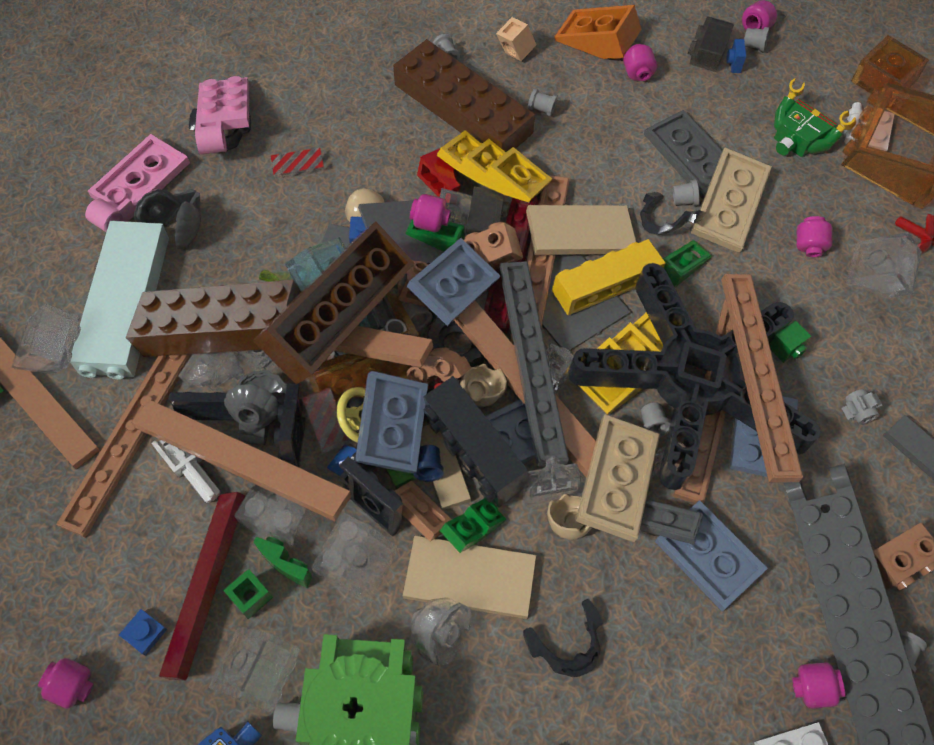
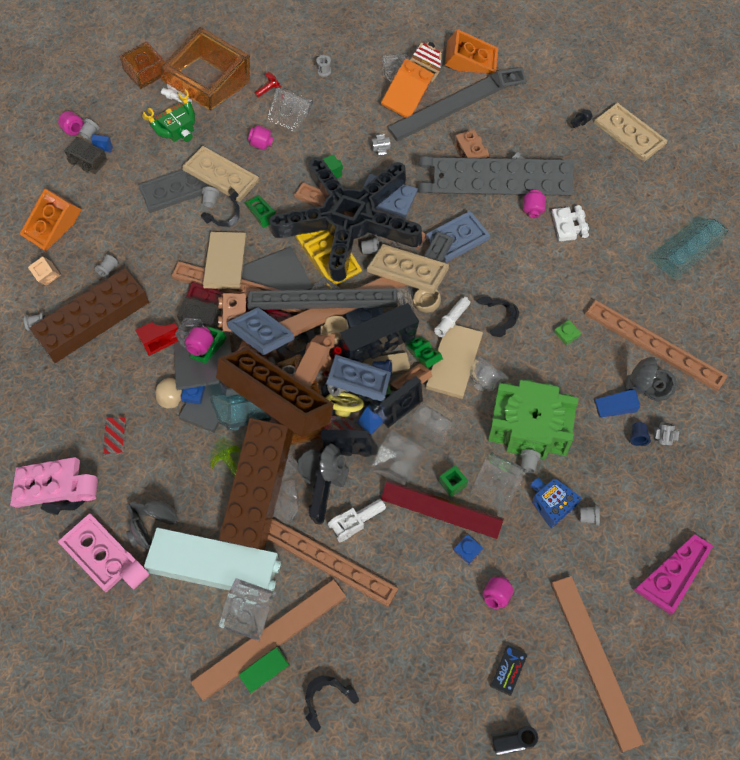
camera: 80 degrees left, 0 degrees up
(243, 460) = (364, 476): nougat tile -> none
(277, 556) = (431, 463): green slope -> none
(494, 168) = (164, 300): yellow slope -> none
(546, 561) = (448, 321): none -> white axle
(603, 277) = (266, 251): yellow brick -> none
(640, 62) = (90, 200): dark pink head -> none
(761, 380) = (359, 180): nougat tile -> none

